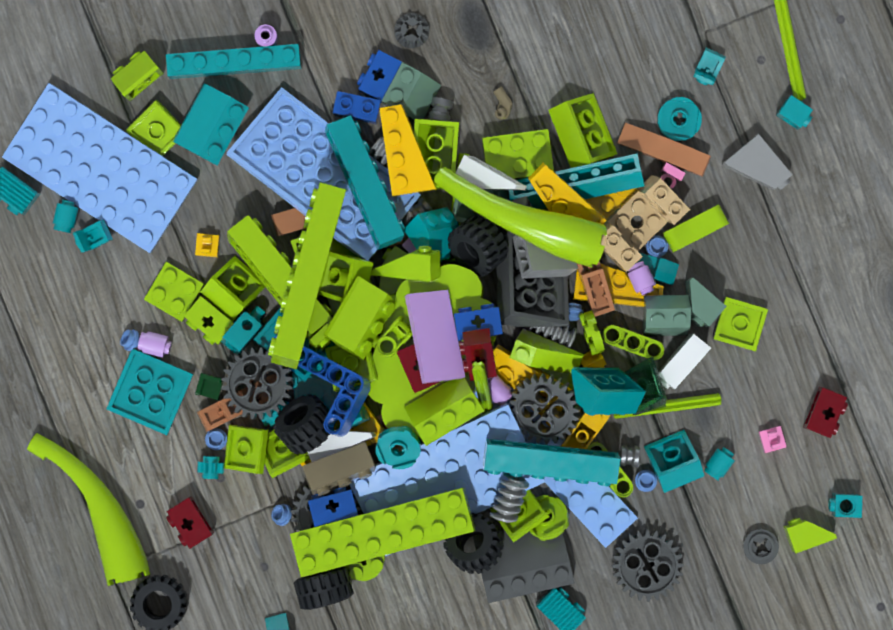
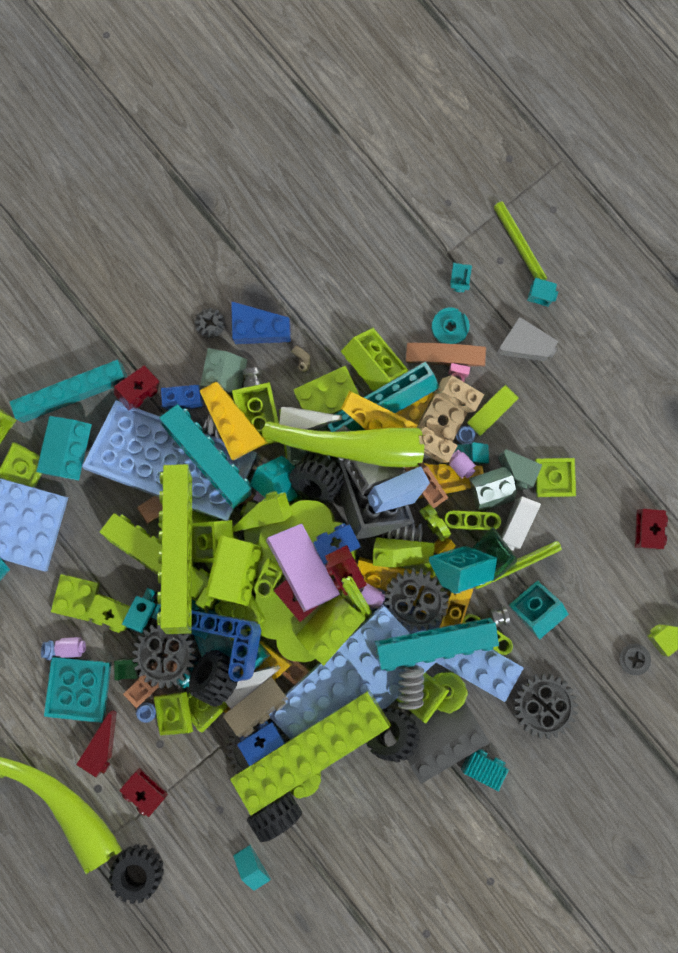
camera: 20 degrees left, 5 degrees down
(155, 463) = (99, 751): none -> dark red slope
(207, 245) = (92, 549): yellow tile -> none
(210, 467) = (147, 739): teal gear -> none
(233, 288) = (122, 579): lime slope -> none
(271, 41) = (89, 361): lavender brick -> none
(281, 514) = (220, 760): medium blue plate -> none
(318, 73) = (140, 379): none -> dark red brick
(389, 68) = (189, 356): blue brick -> none
(398, 436) = (298, 663): teal plate -> none
(465, 52) = (258, 326): none -> blue wedge
(562, 286) = (398, 491): none -> light blue slope
(574, 311) = (415, 508): medium blue plate -> none
(645, 480) = (520, 633): medium blue plate -> none
(719, 463) = (577, 599): teal brick -> none
(772, 439) = (613, 565): bright pink tile -> none

